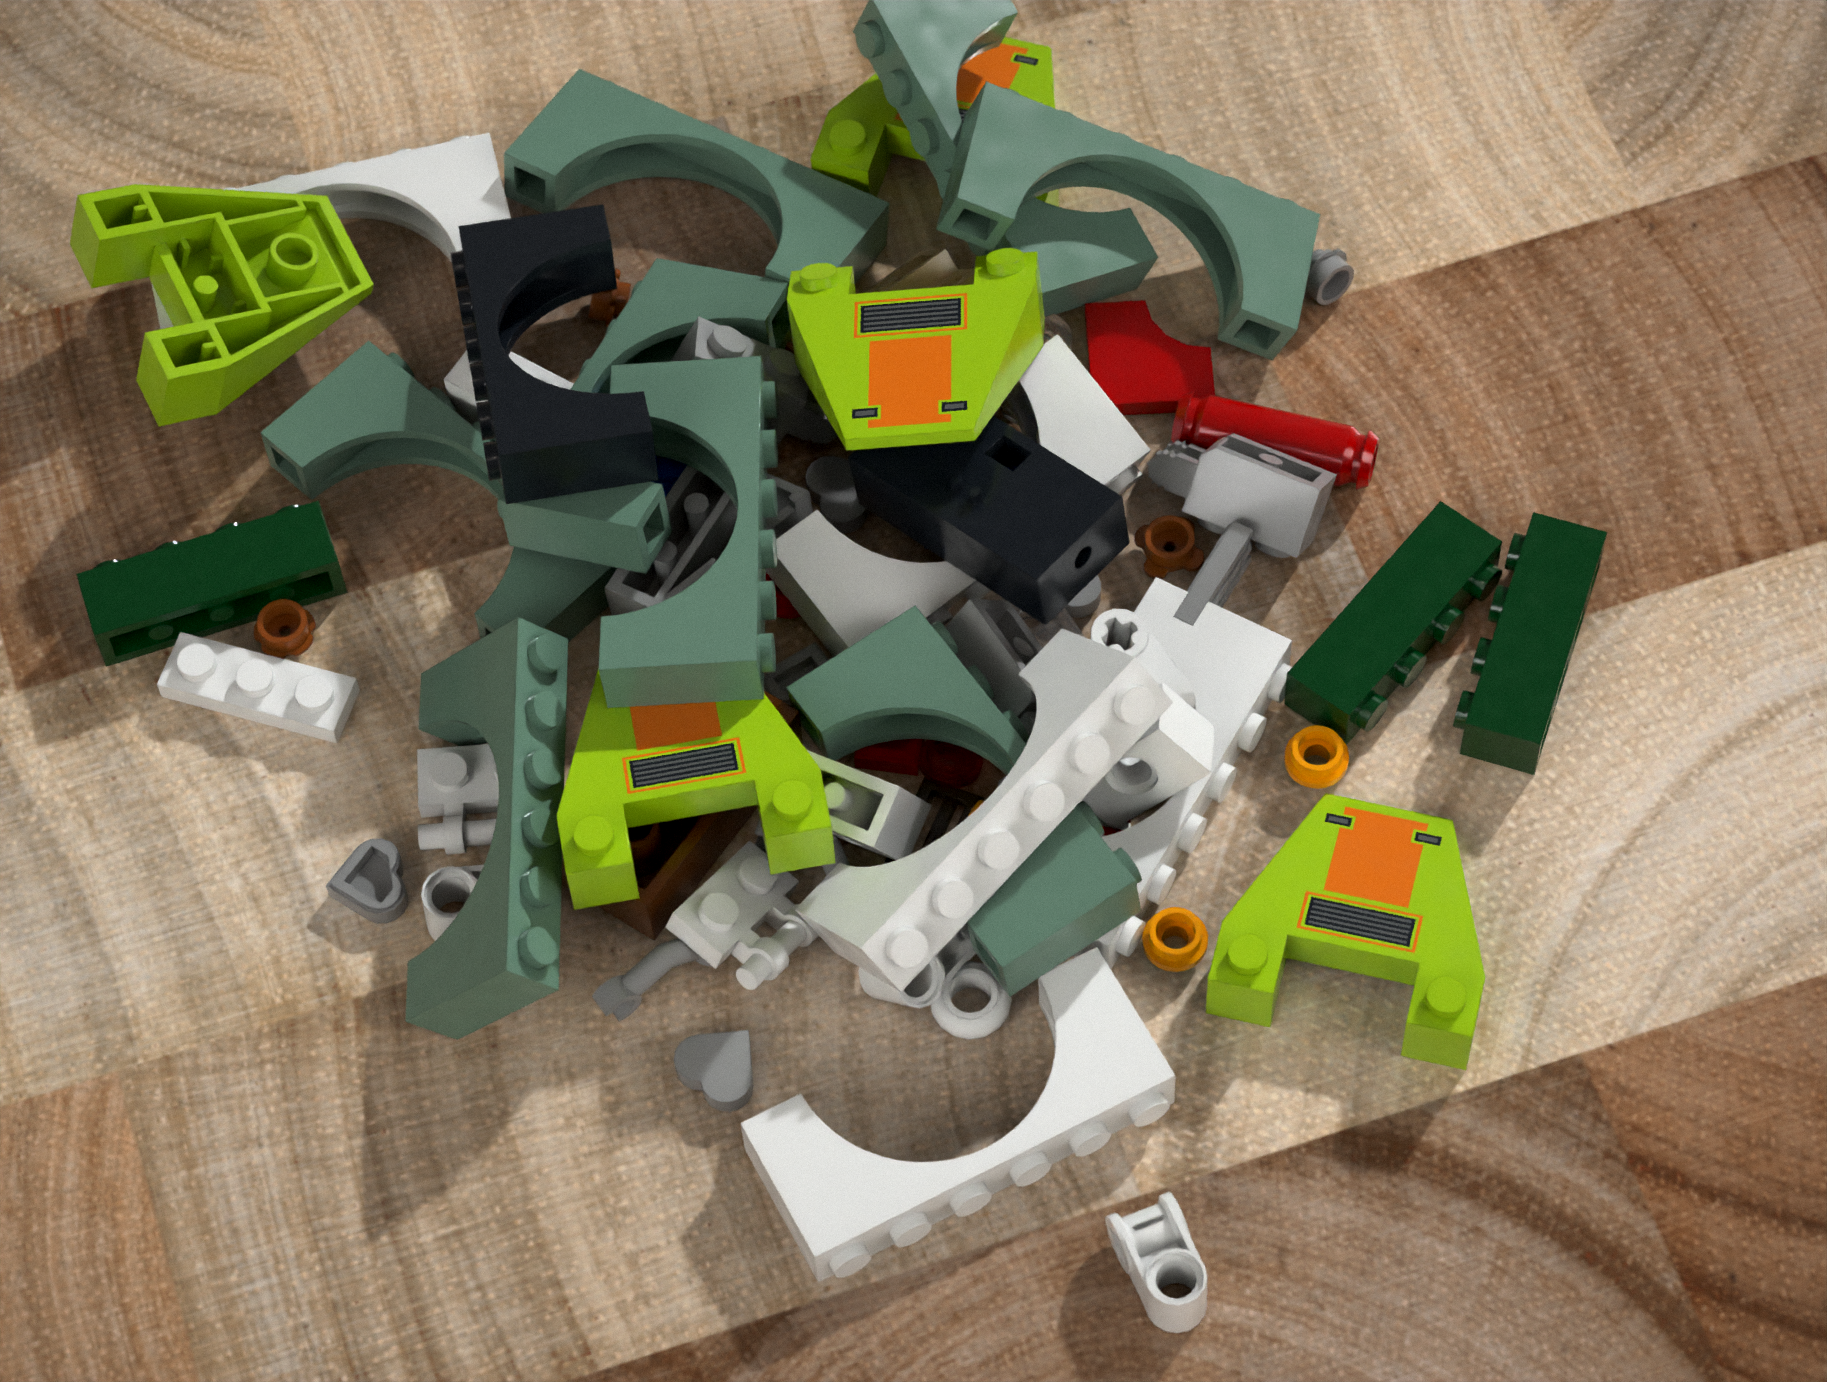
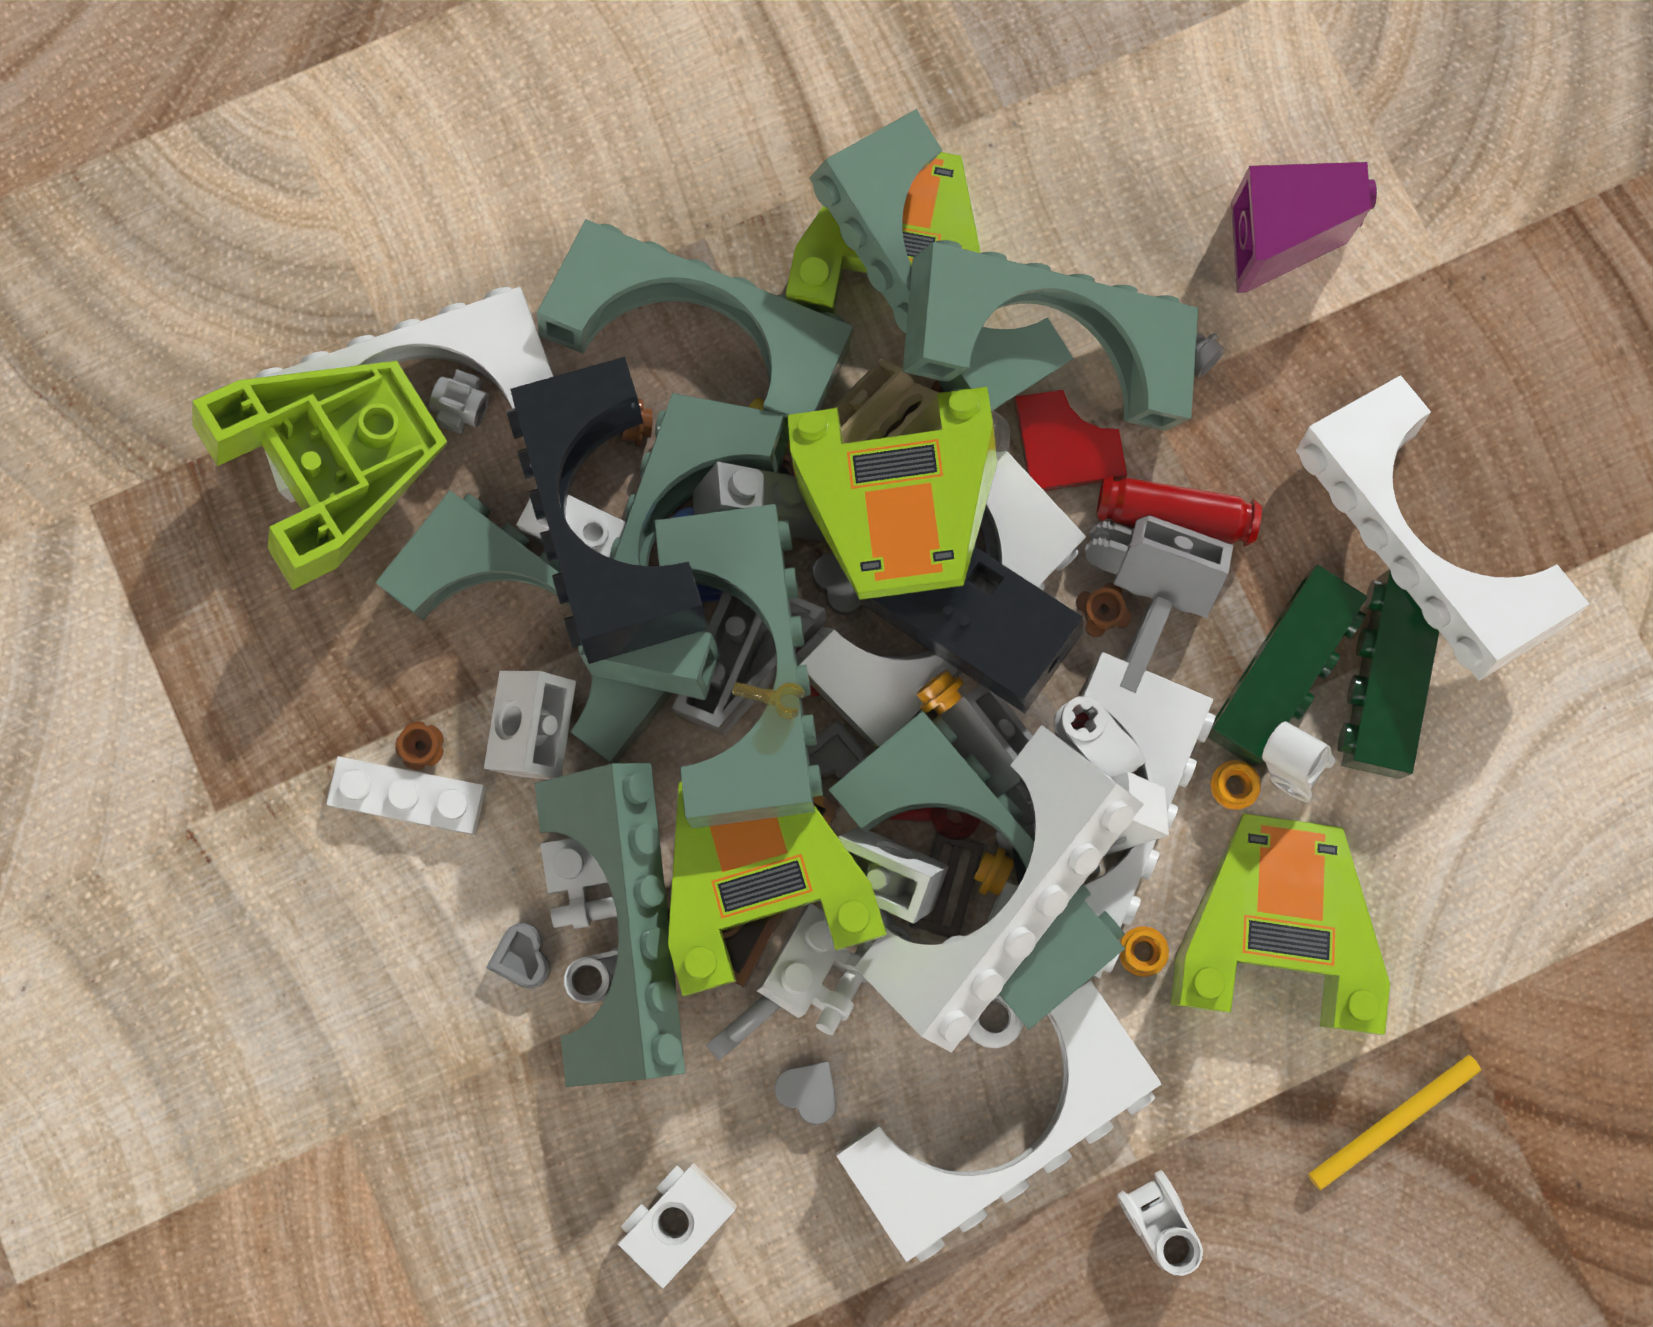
camera: 10 degrees left, 20 degrees up
(210, 582) = (355, 711): dark green brick -> none
(396, 255) = (459, 401): none -> light grey gear
(425, 605) = (530, 724): none -> white brick
(511, 1235) = (666, 1254): none -> white brick
(733, 546) = (771, 696): none -> clear yellow hand
(942, 595) = (940, 693): none -> light orange plate
(1393, 721) = (1296, 760): none -> white piece
(1455, 126) = (1295, 216): none -> magenta slope
(1487, 1173) = (1394, 1122): none -> yellow bar
(1634, 556) = (1477, 614): none -> white arch

